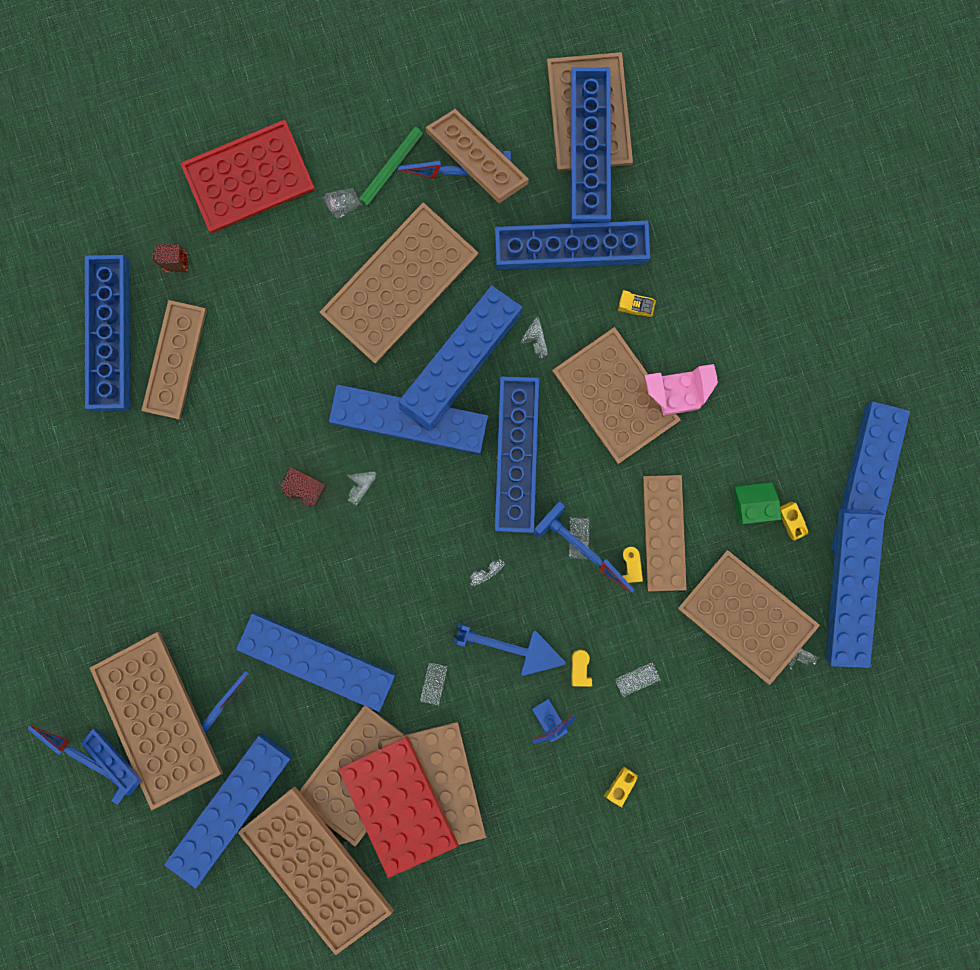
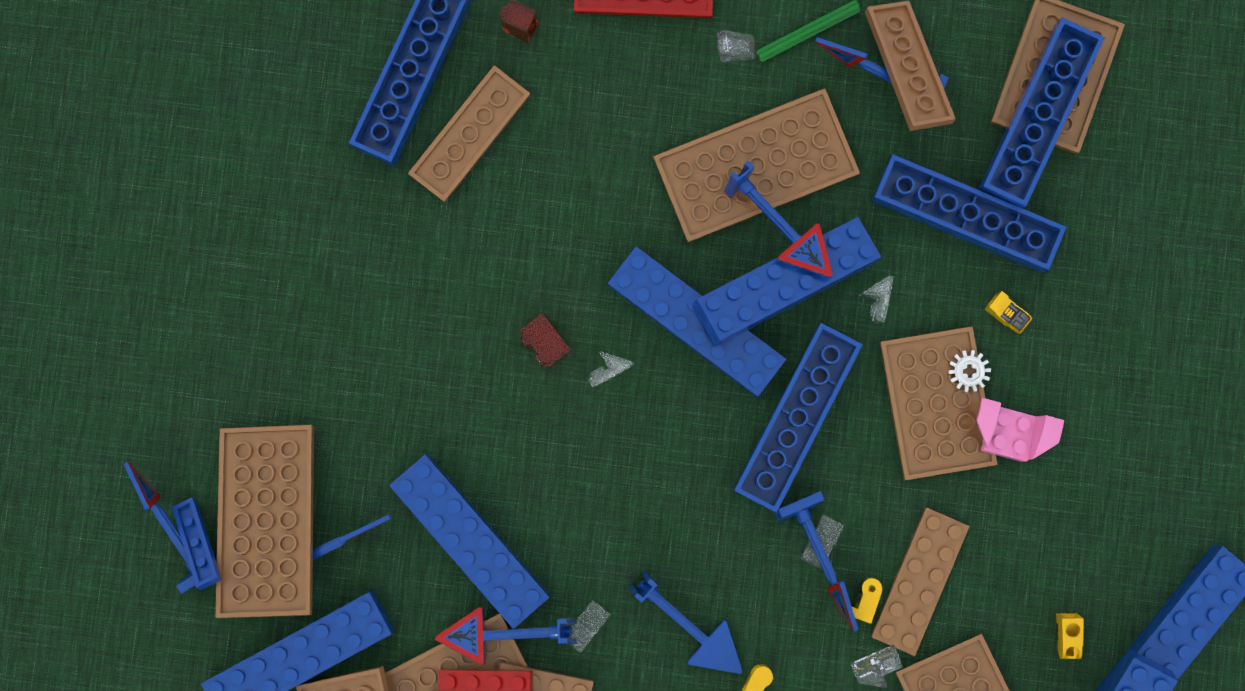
camera: 30 degrees right, 0 degrees up
(349, 733) = (469, 636): none -> blue piece
(464, 328) = (806, 251): none -> blue piece
(480, 577) = (694, 533): clear slope -> none
(635, 363) = (976, 364): none -> white gear
(659, 613) = (873, 667): none -> clear slope
(757, 503) = (1039, 598): green slope -> none

